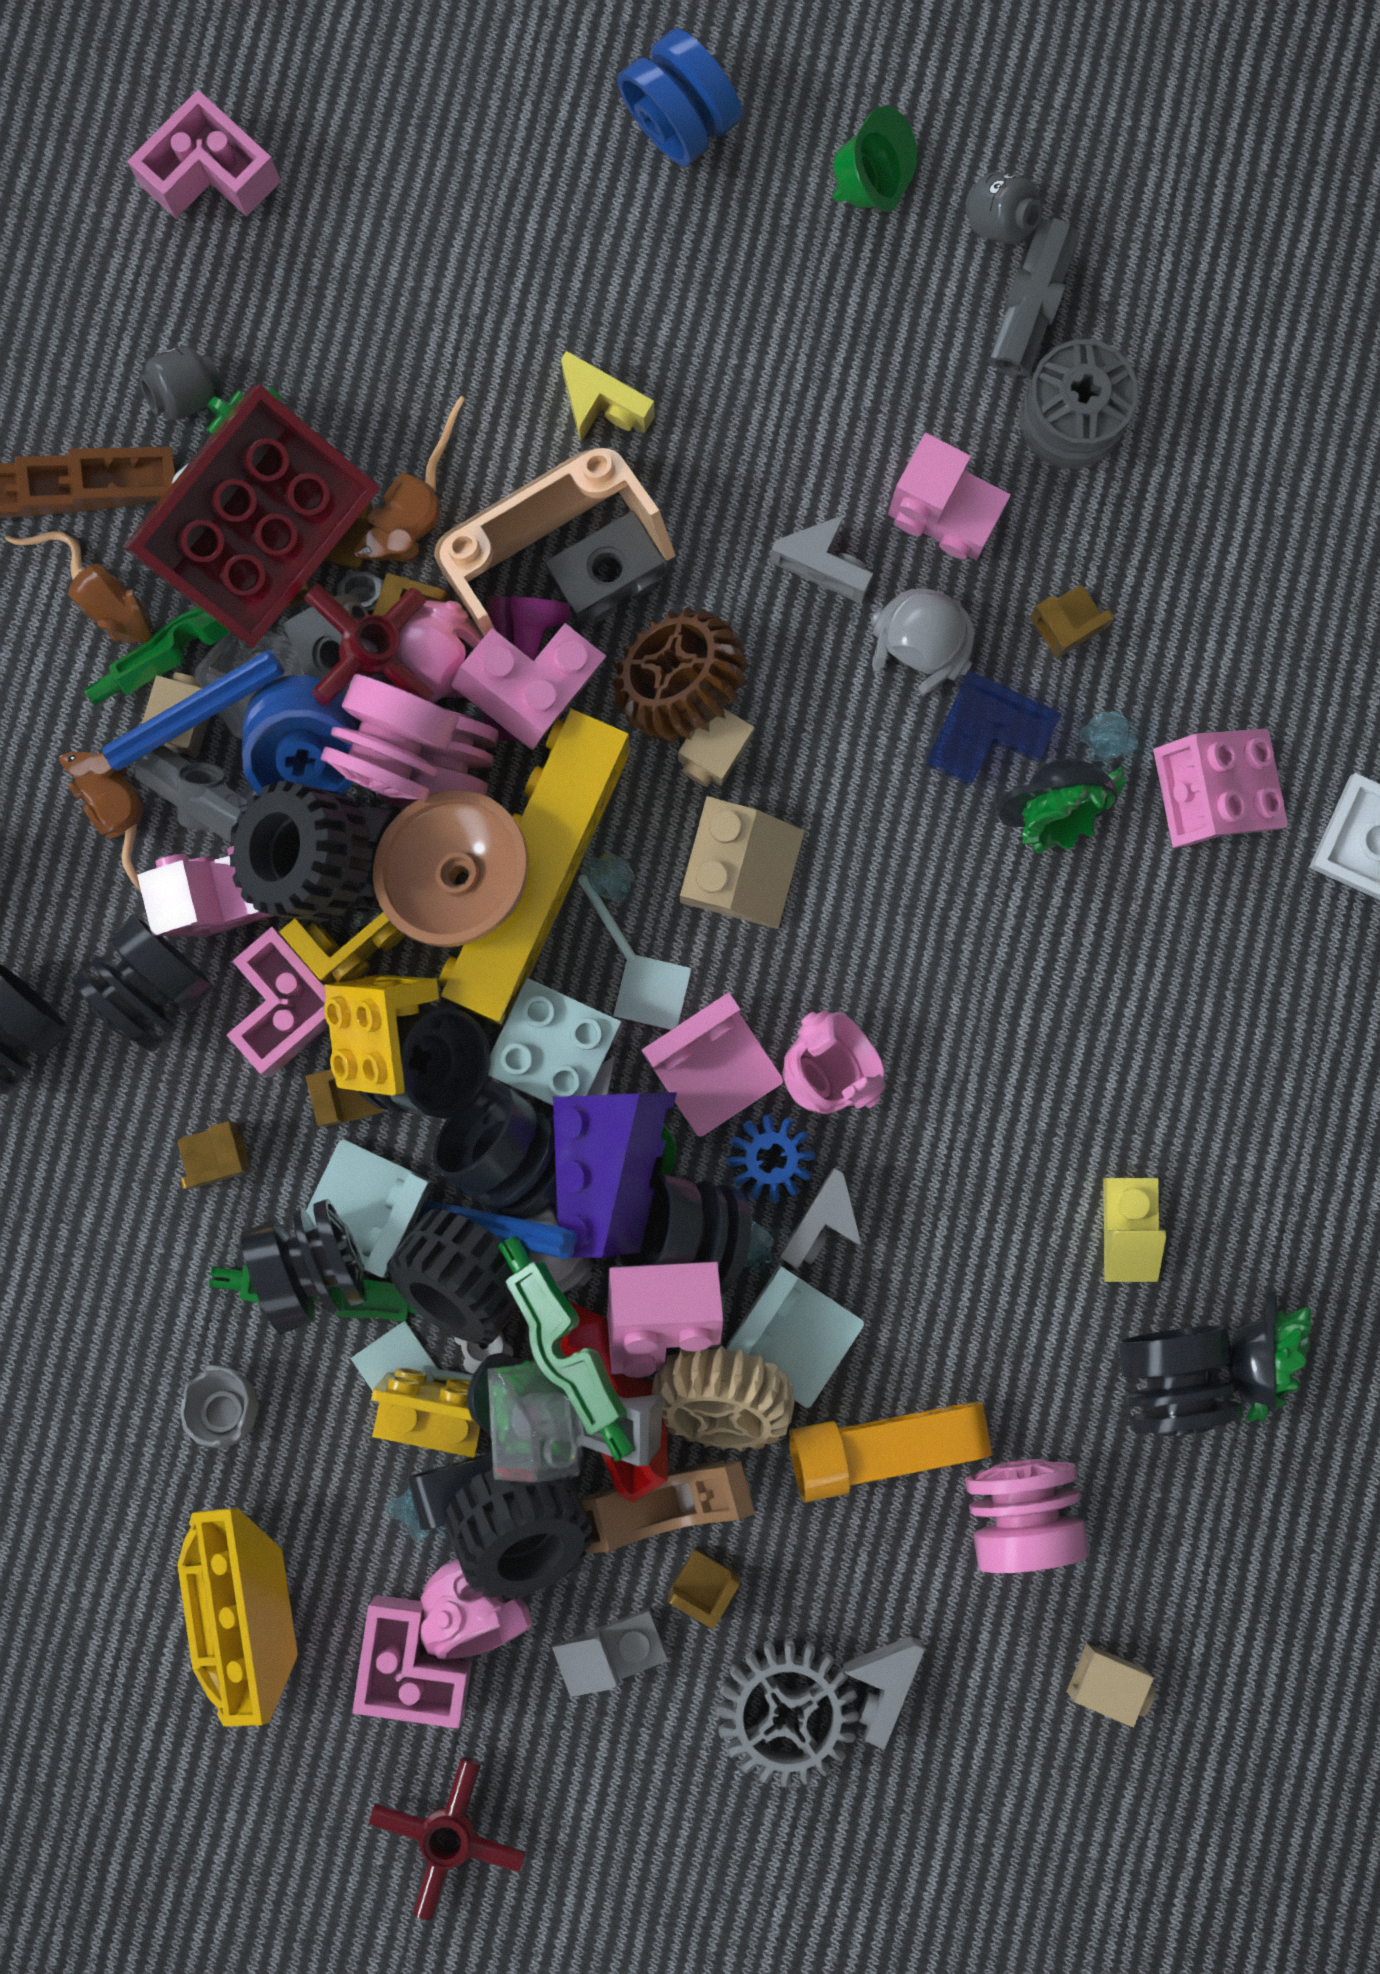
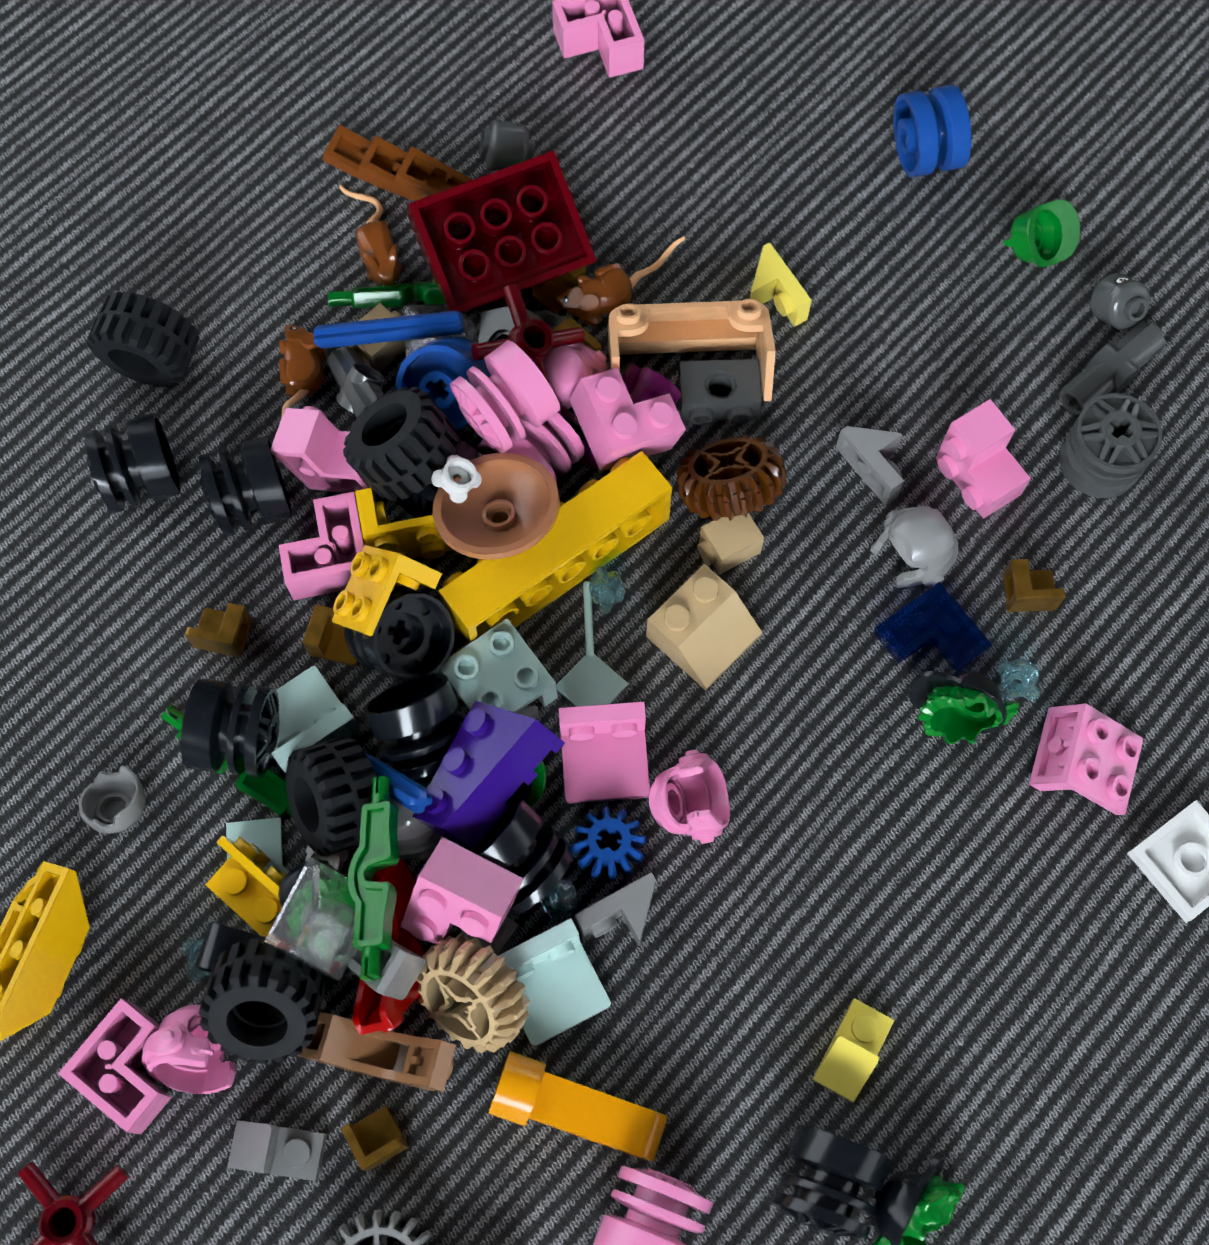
camera: 30 degrees right, 15 degrees down
(398, 850) = (462, 469): none -> white plate

